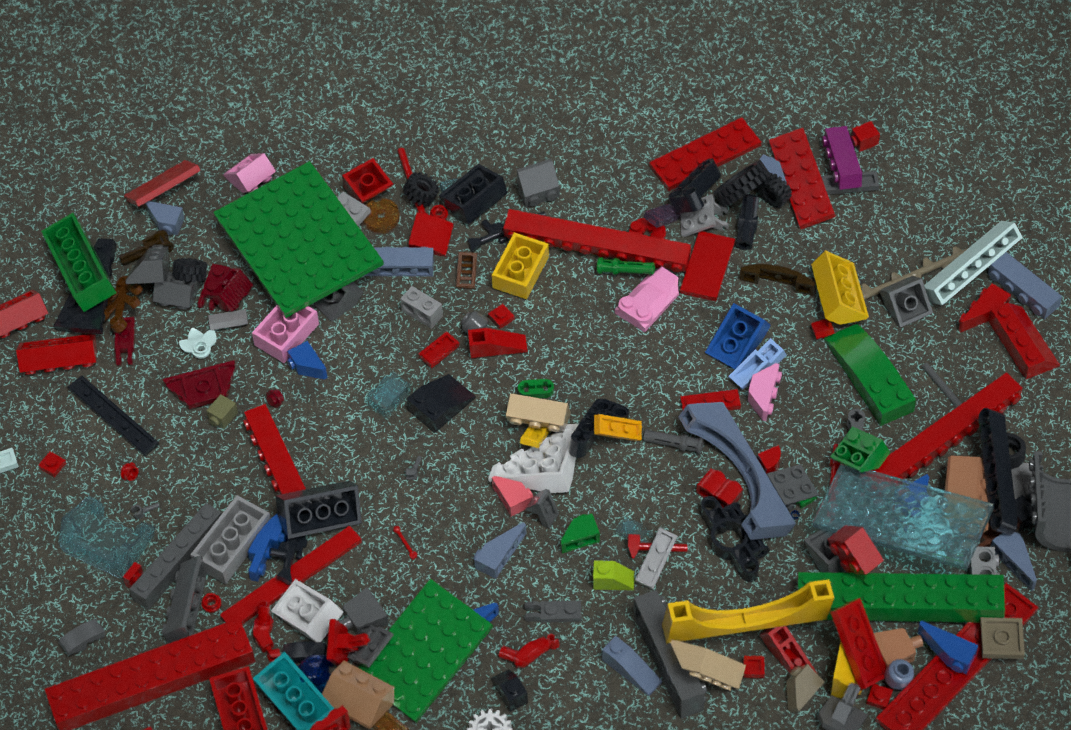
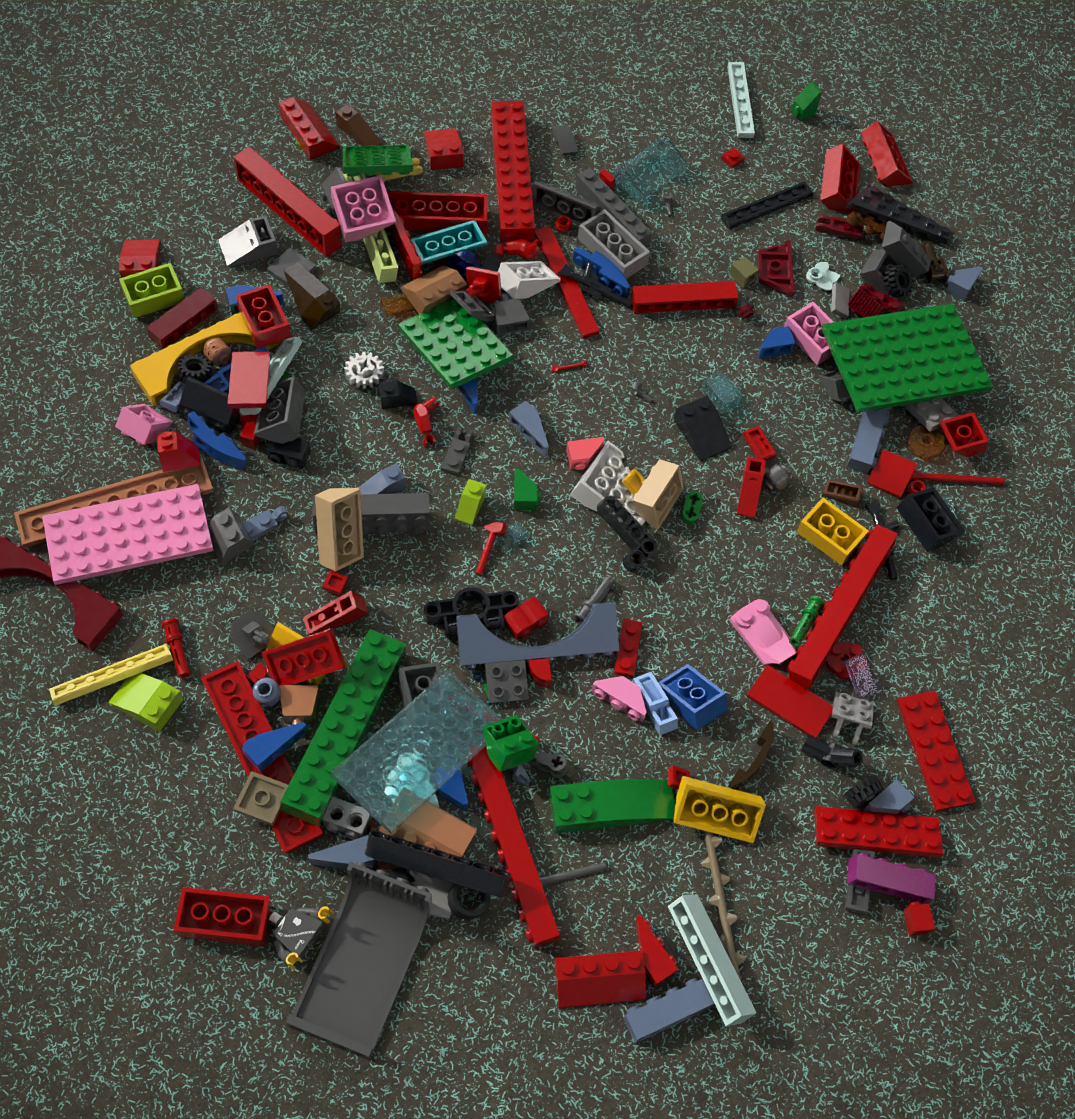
camera: 100 degrees right, 5 degrees up
(78, 262) = (923, 202): green brick -> none
(129, 471) = (706, 201): red plate -> none
(162, 183) = (1002, 285): red tile -> none
(250, 172) = (1000, 354): bright pink slope -> none
(319, 509) = (618, 305): black slope -> none
(415, 184) = (957, 477): black tyre -> none
(421, 307) = (808, 441): light grey brick -> none
(501, 316) = (783, 505): red plate -> none
(538, 183) = (927, 575): dark grey slope -> none
(544, 507) = (556, 467): dark grey slope -> none
(617, 427) = (617, 547): light orange plate -> none
(656, 558) = (474, 541): light grey tile -> none
(688, 193) = (888, 715): black beam -> none
(688, 622) = (356, 612): yellow arch -> none
(741, 183) = (875, 755): black tyre -> none
(801, 687) = (295, 611): dark tan slope -> none
(855, 550) = (395, 685): red brick -> none
(906, 300) = (687, 874): dark grey slope -> none

